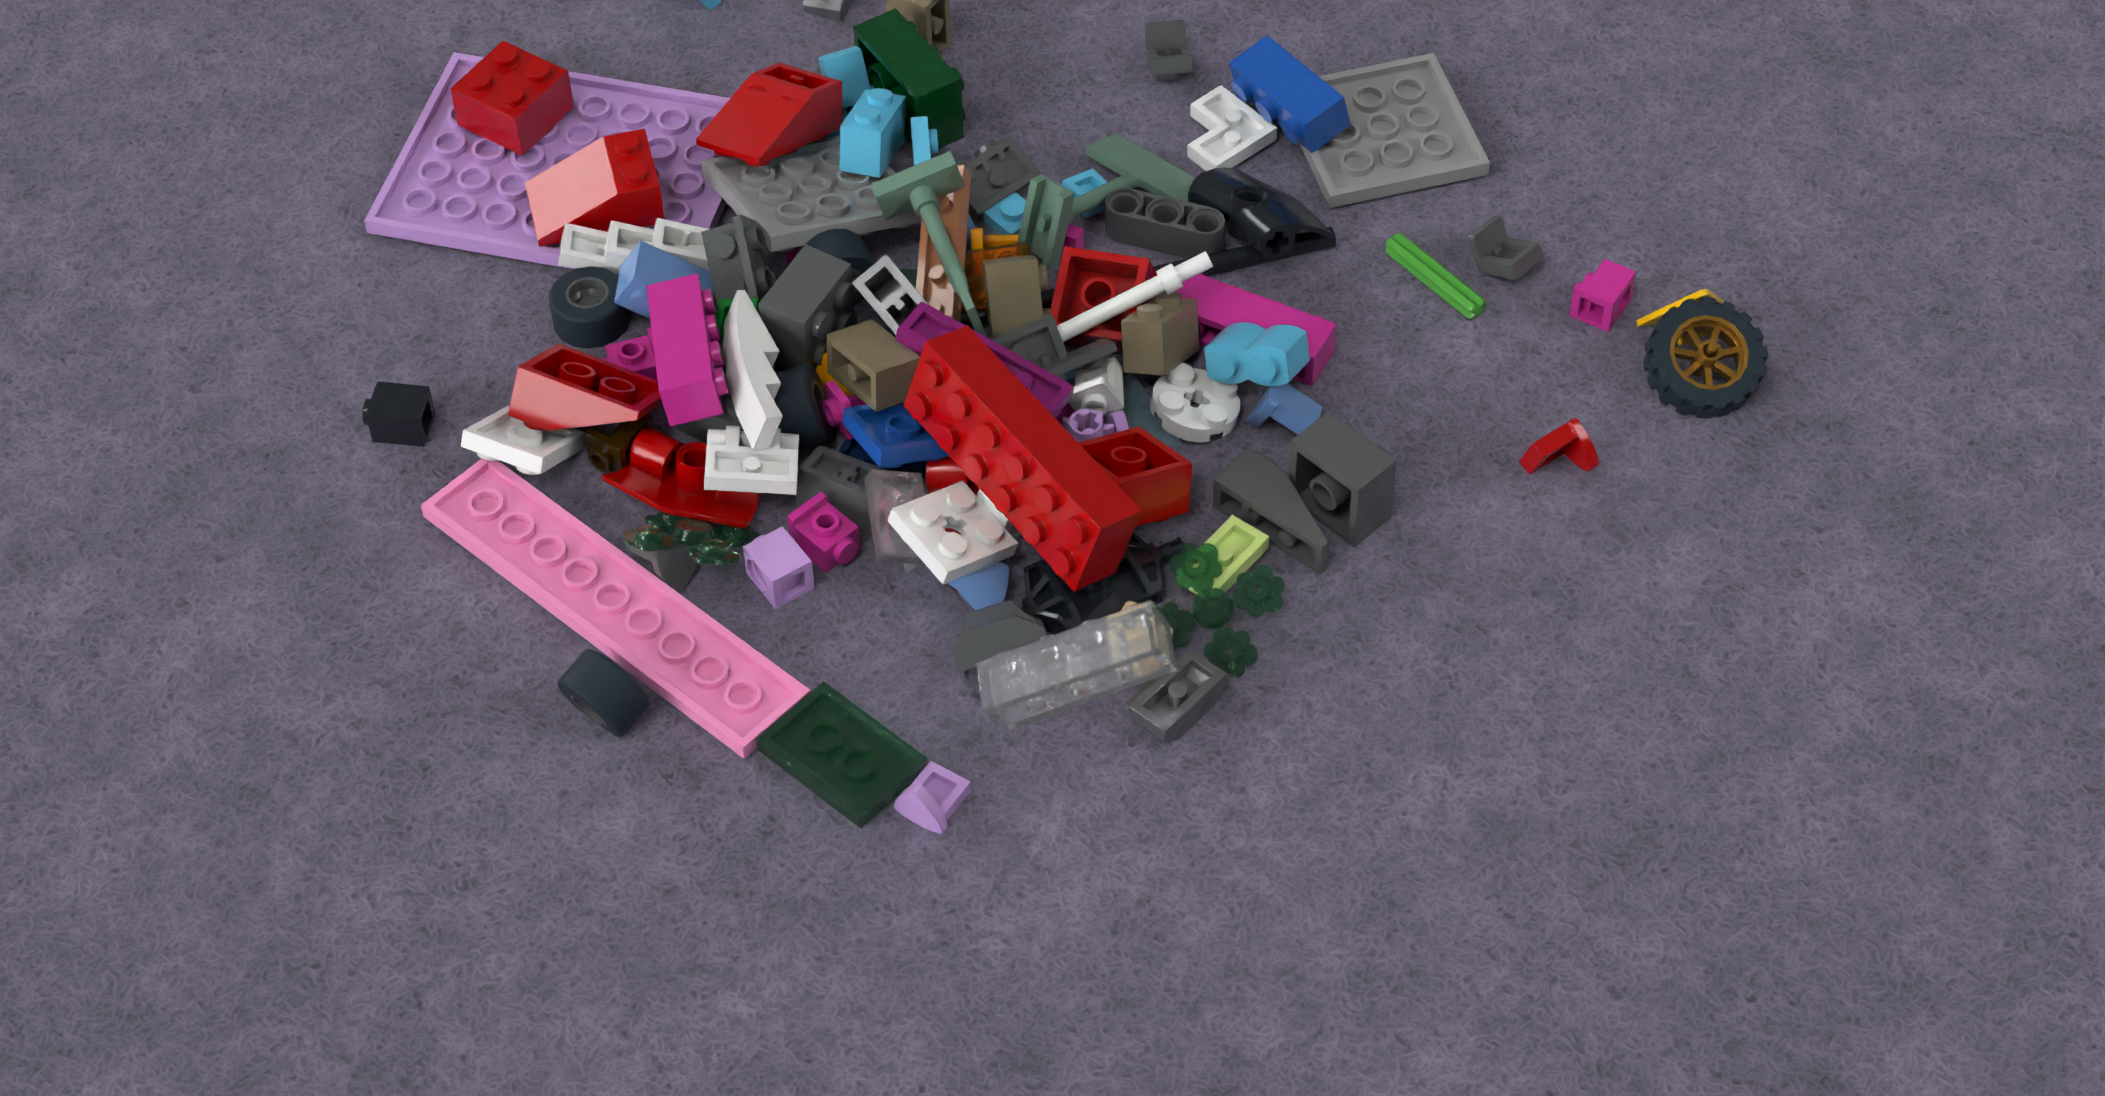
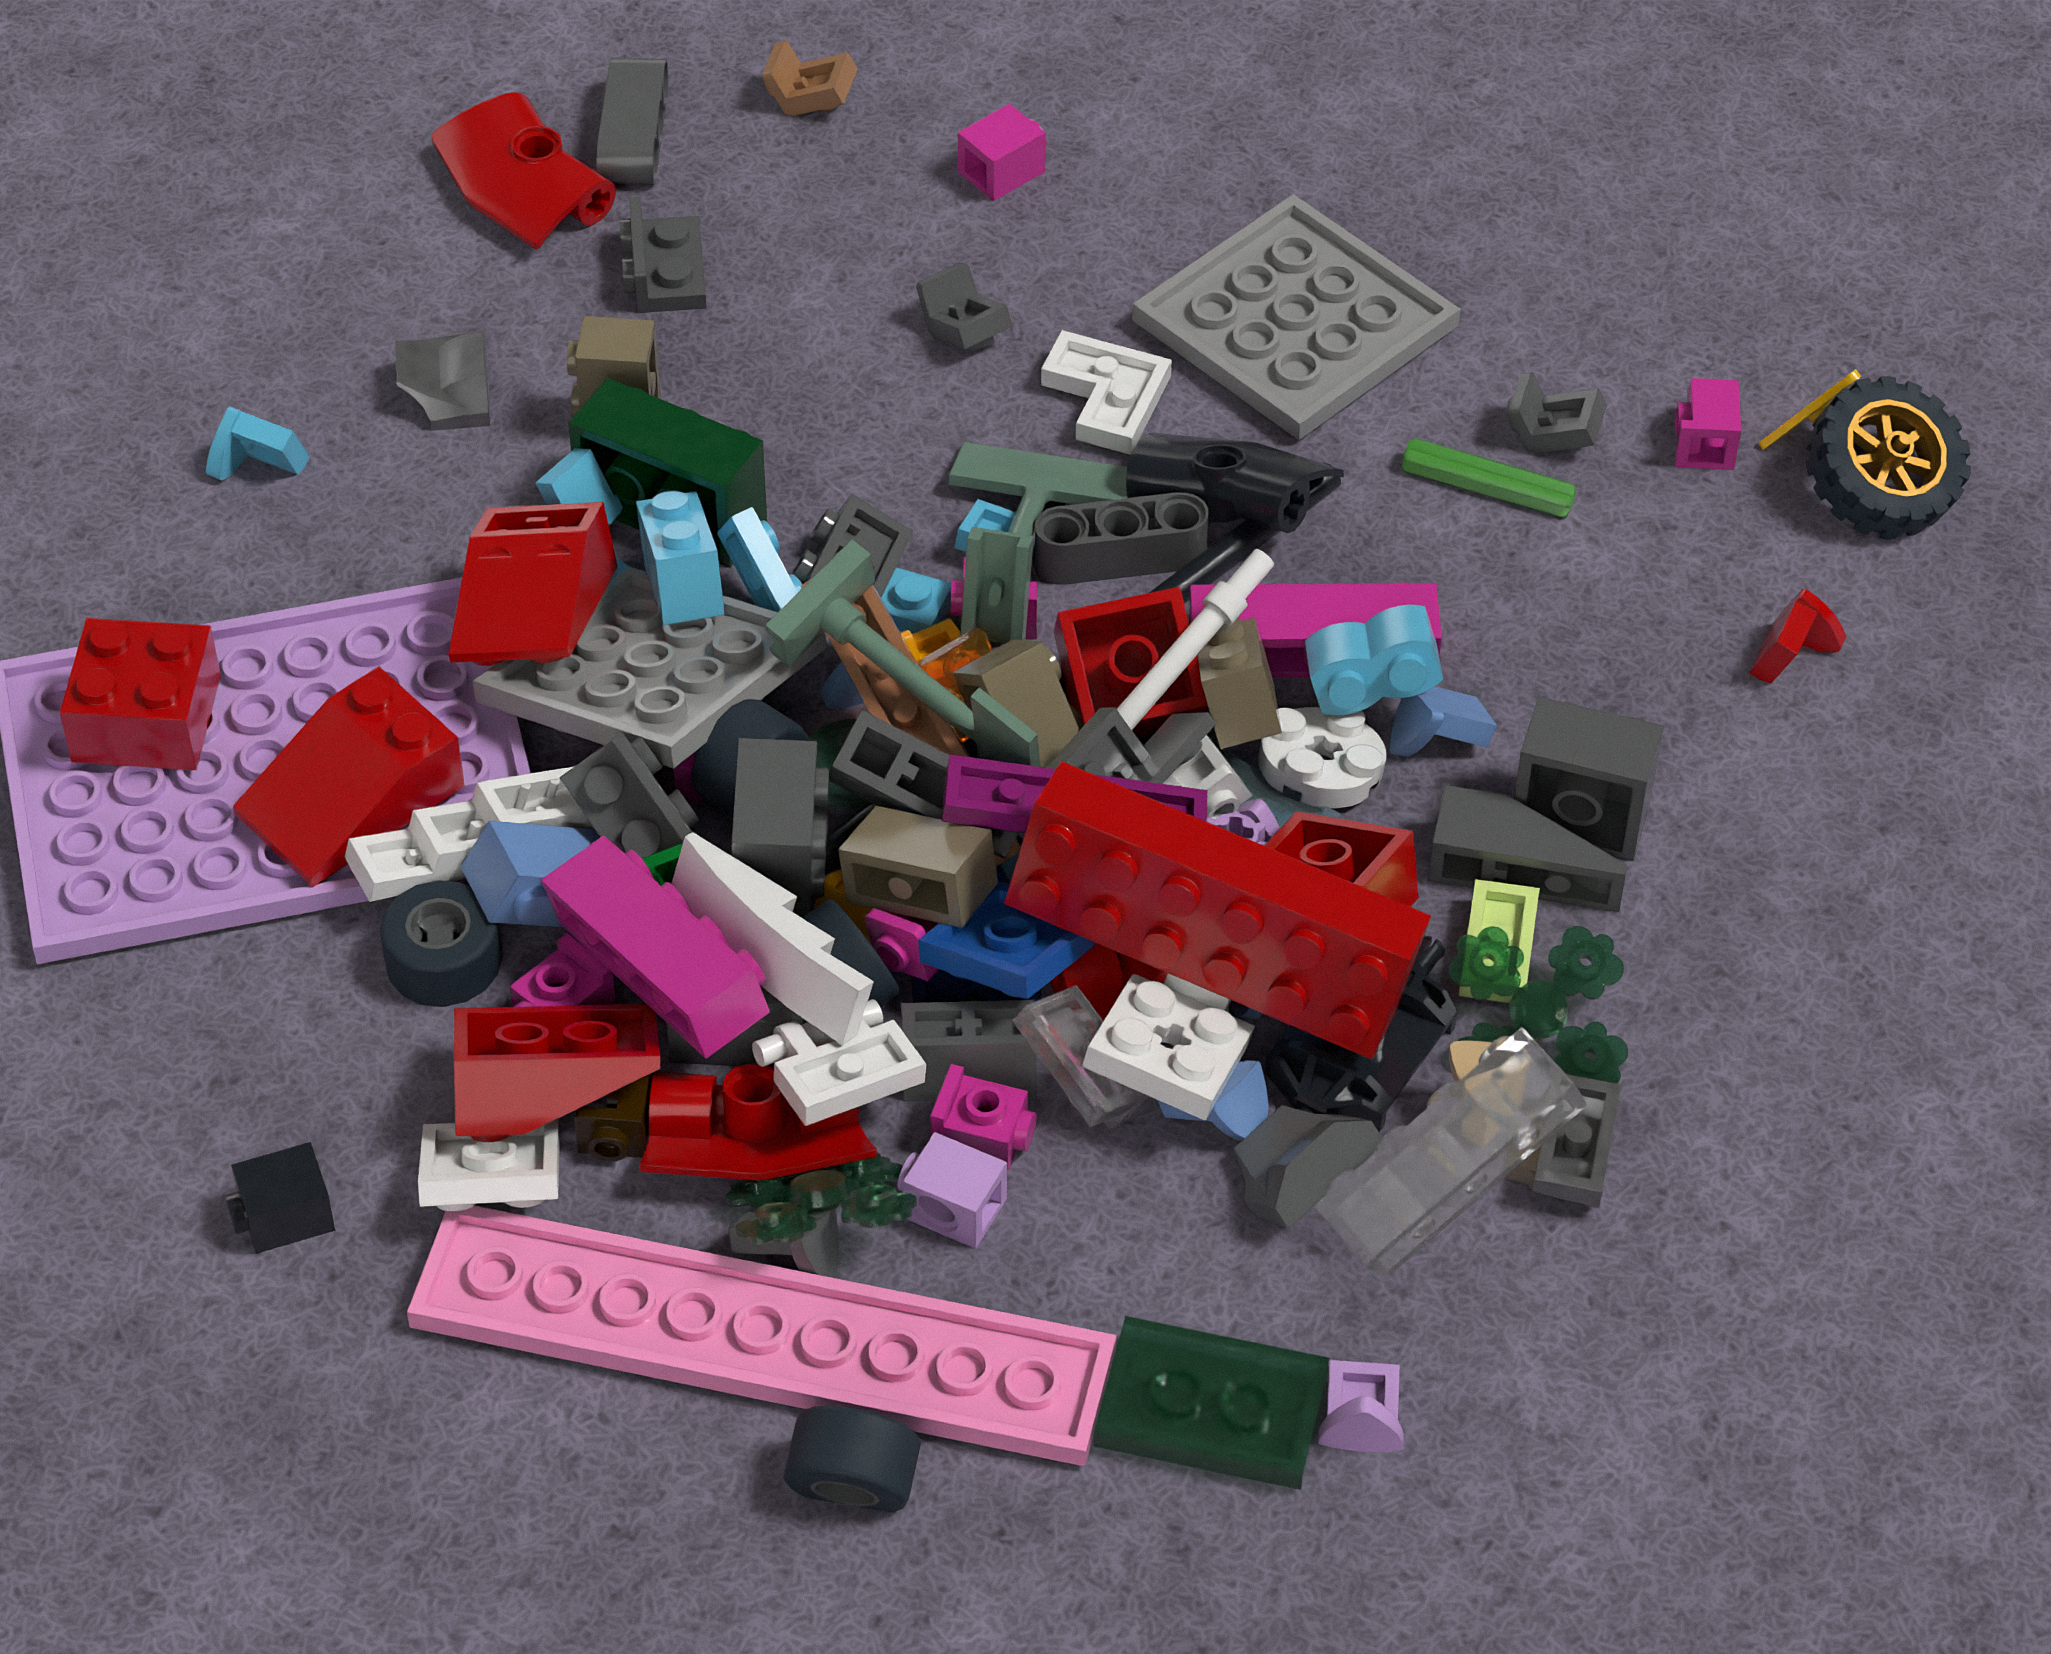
camera: 30 degrees left, 0 degrees up
(1289, 94) = (1169, 309): blue brick -> none

